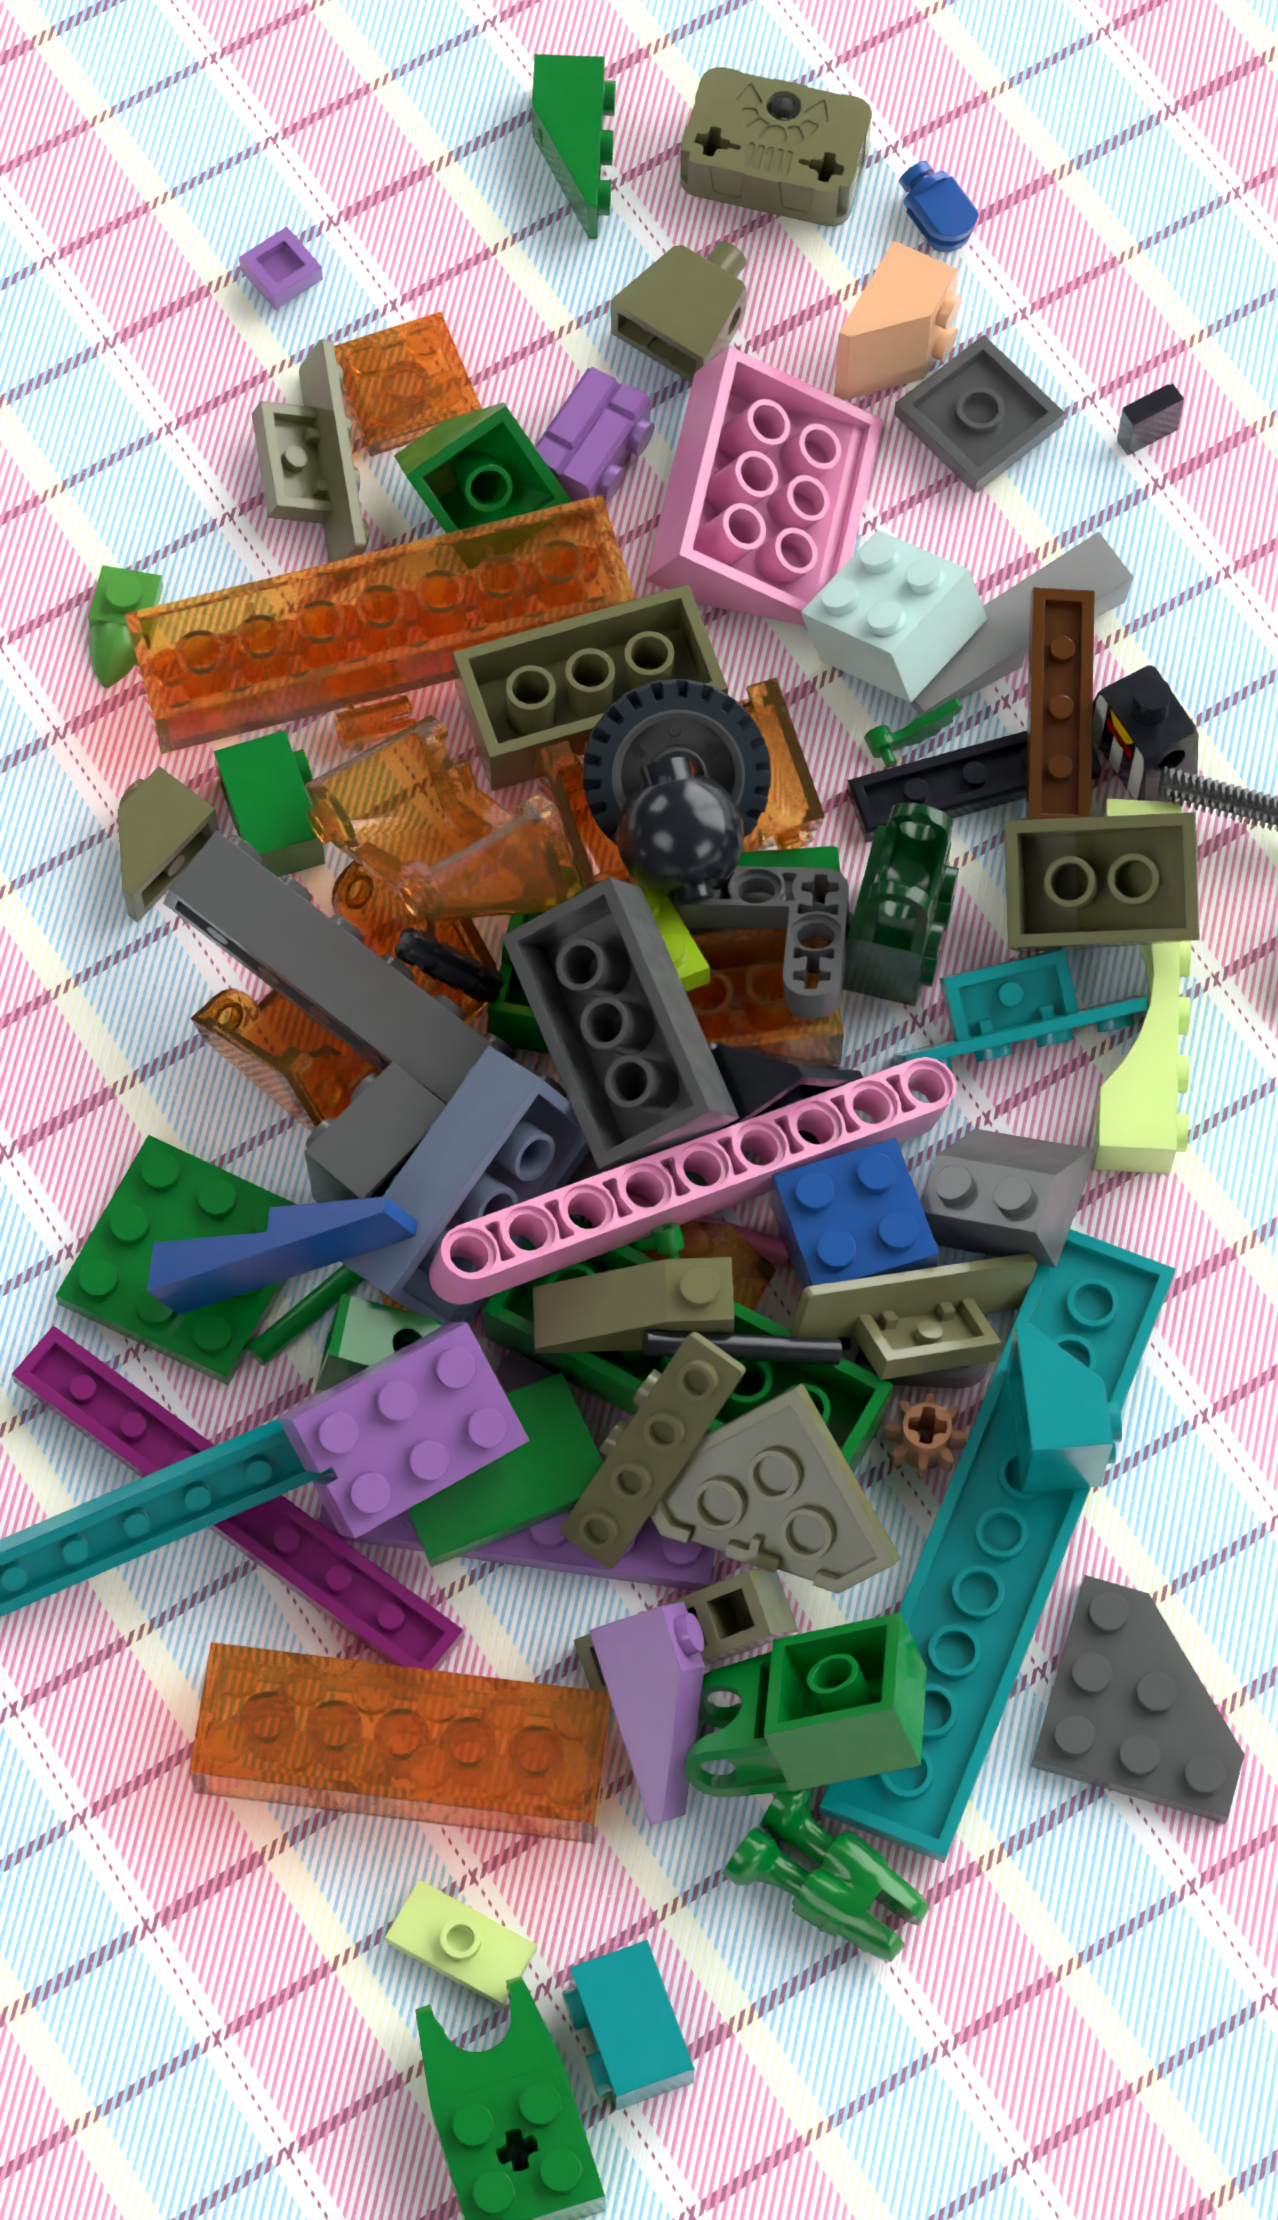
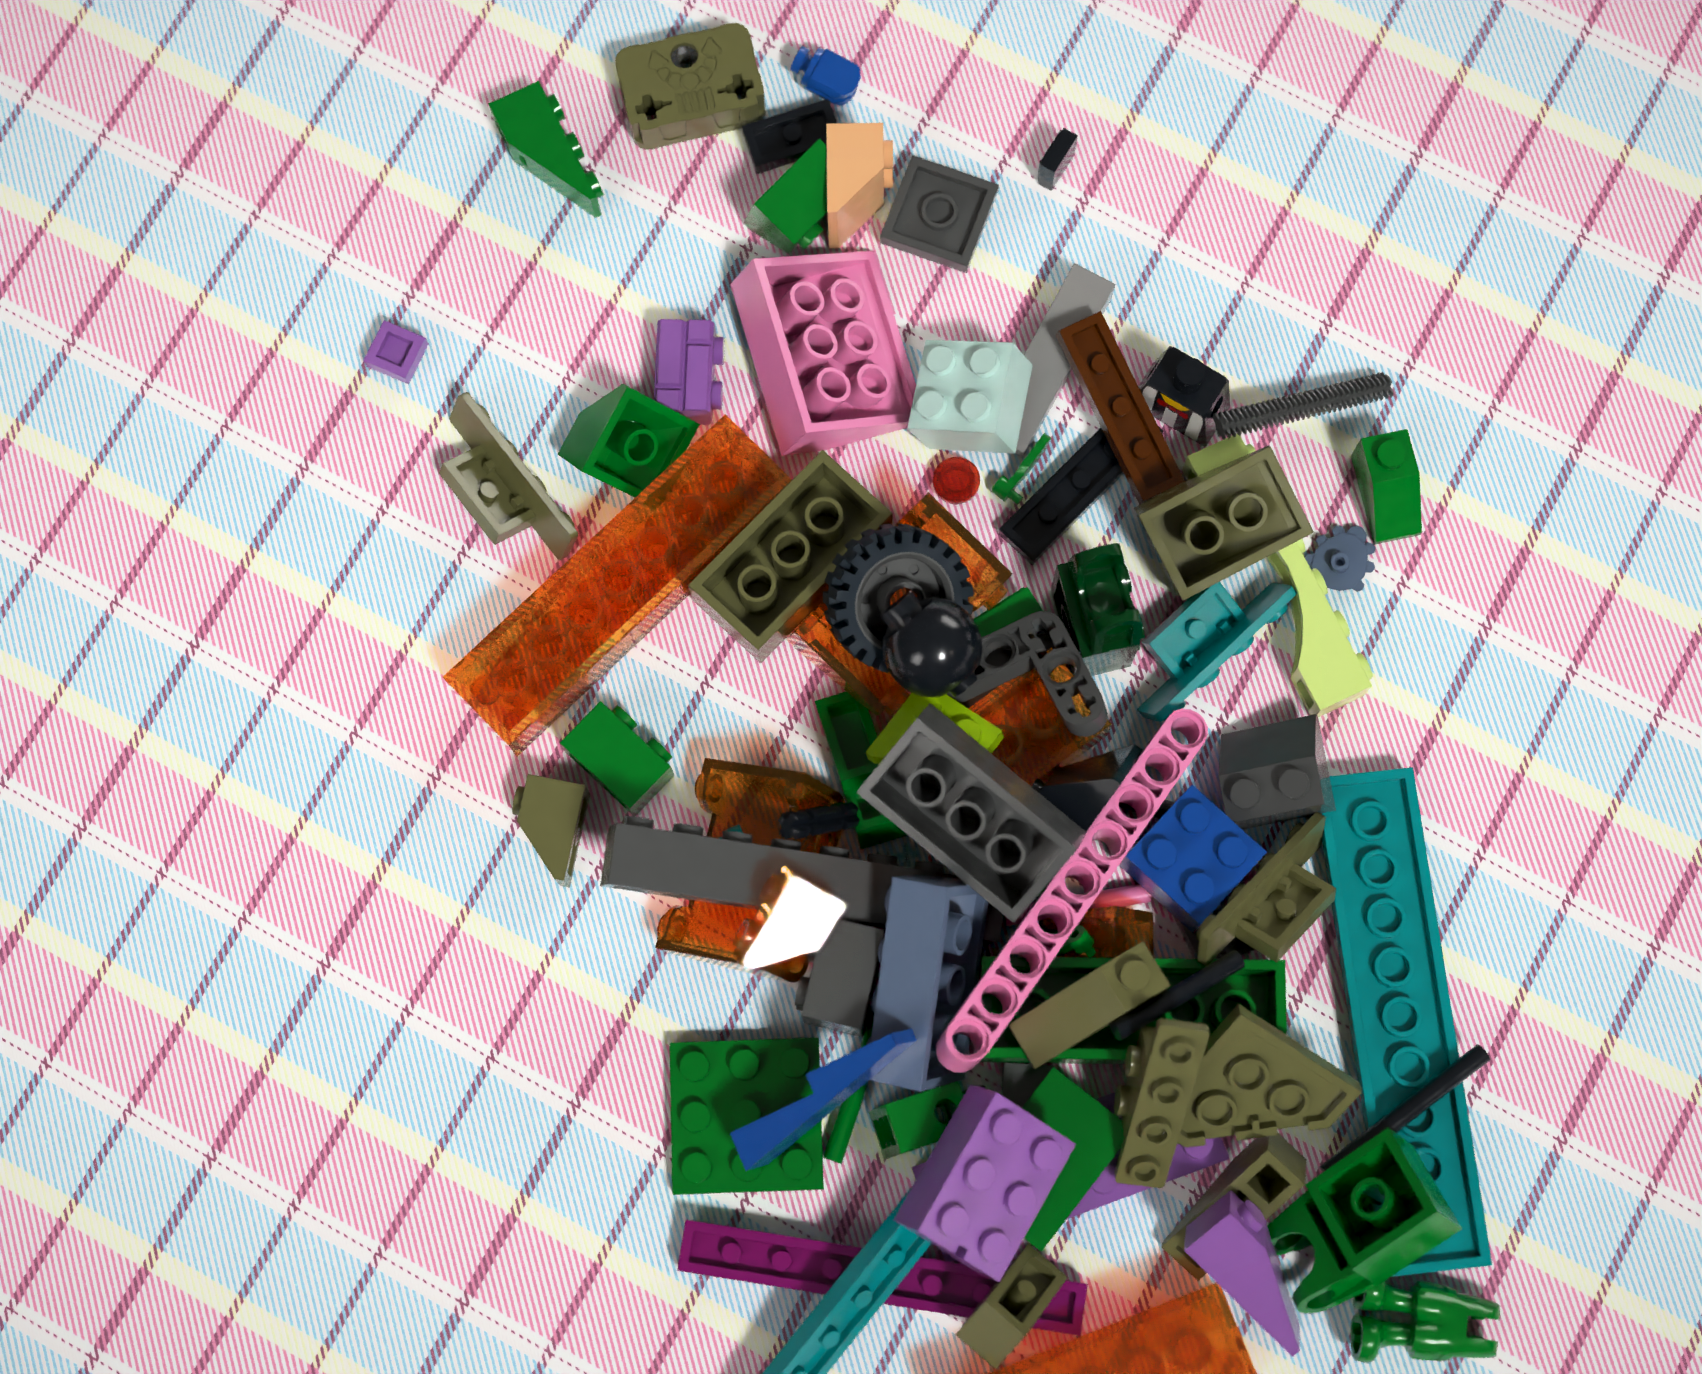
camera: 25 degrees left, 10 degrees up
(116, 594) = (426, 660): bright green plate -> none
(348, 1037) = (790, 921): none -> slope
(359, 1596) = (1011, 1306): none -> olive slope
(371, 722) = (653, 657): clear orange pin -> none
(404, 382) = (532, 392): clear orange plate -> none
(437, 835) = (760, 728): clear orange windscreen -> none
(683, 307) = (695, 239): olive torso -> none
(803, 313) = (794, 203): none -> green slope
(829, 705) = (956, 480): none -> clear red plate
(847, 248) = (787, 136): none -> black plate
(929, 1416) = (1316, 962): nougat gear -> none
(993, 1626) = (1418, 1101): none -> black bar
(1058, 1416) = (1407, 924): teal slope -> none
(1135, 1711) = (1551, 1090): dark grey plate -> none
(1231, 1009) = (1343, 558): none -> sand blue piece

